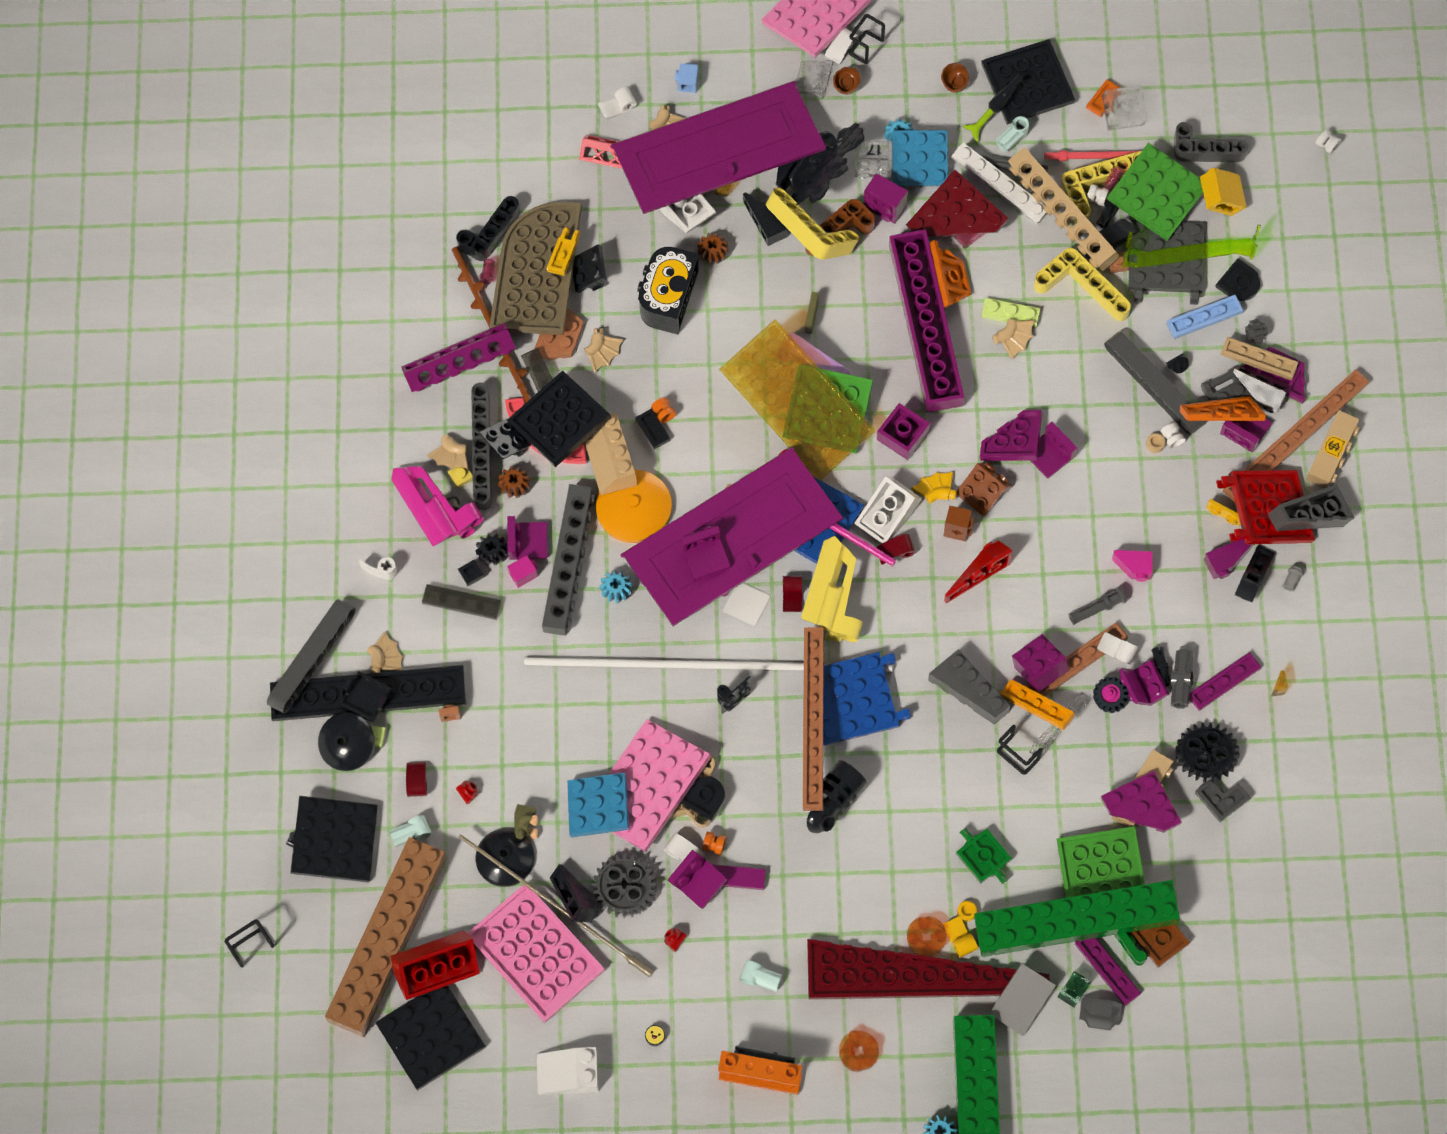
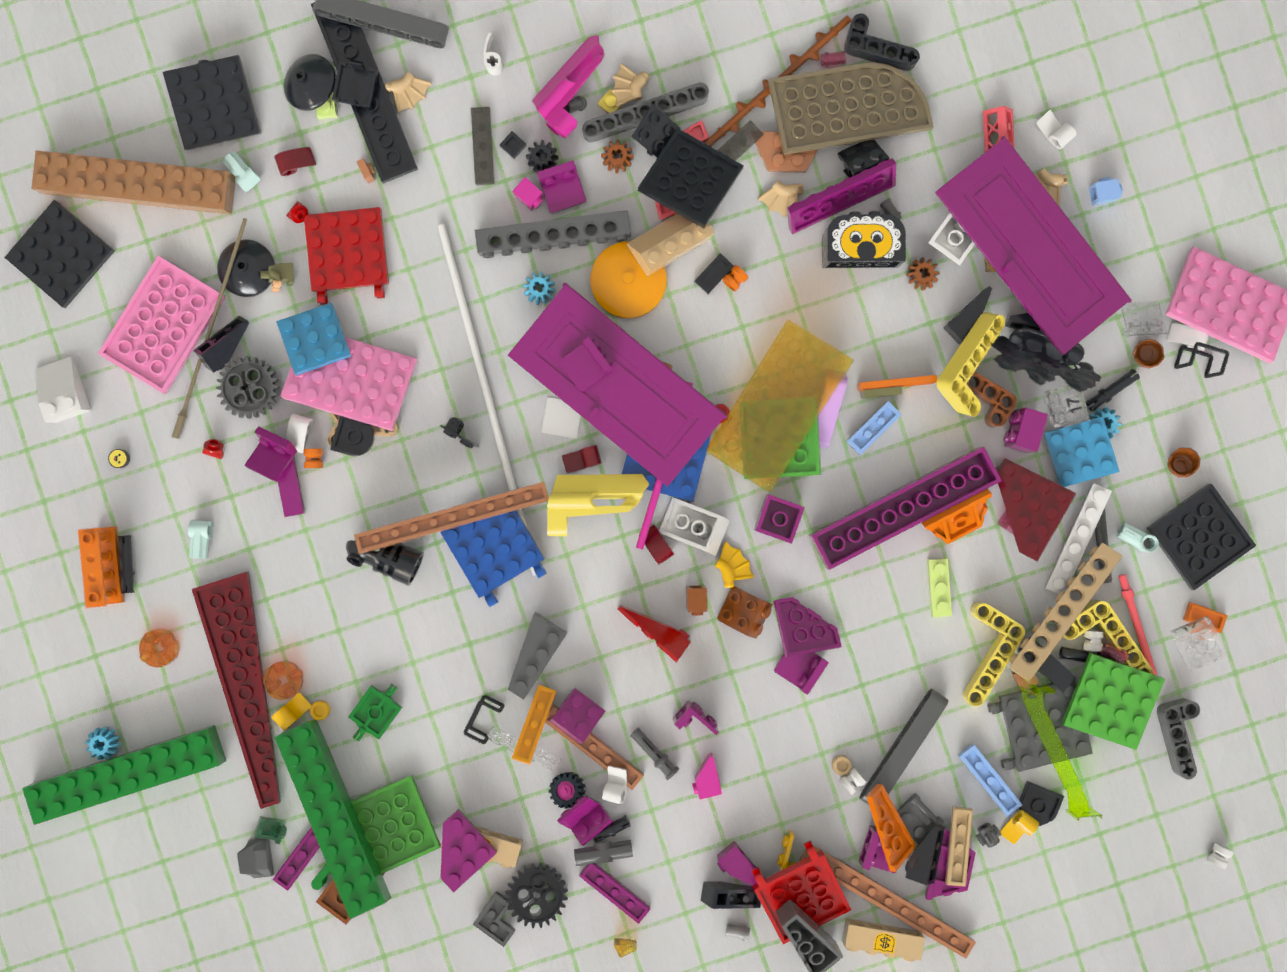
camera: 70 degrees right, 20 degrees up
(260, 929) = (96, 59): black piece -> none
(435, 964) = (116, 235): red slope -> none
(449, 354) = (701, 21): magenta brick -> none
(521, 756) = (346, 251): none -> red plate
(563, 252) = (871, 125): yellow hinge -> none
(619, 295) = (842, 196): none -> magenta plate
(642, 260) = (889, 208): none -> dark grey pin
(809, 286) = (904, 382): none -> orange tile
(842, 328) = (873, 427): none -> light blue plate
(873, 125) = (1106, 394): none -> black pin
(995, 105) = (1162, 512): black piece -> none
(1014, 336) = (914, 599): tan arm -> none
(1022, 999) = (245, 785): light grey tile -> none
(1066, 555) = (684, 715): none -> magenta bracket
(1178, 364) = (932, 766): black plate -> none
(1223, 191) = (1132, 766): yellow piece -> none
(1254, 304) = (1018, 825): none -> yellow panel

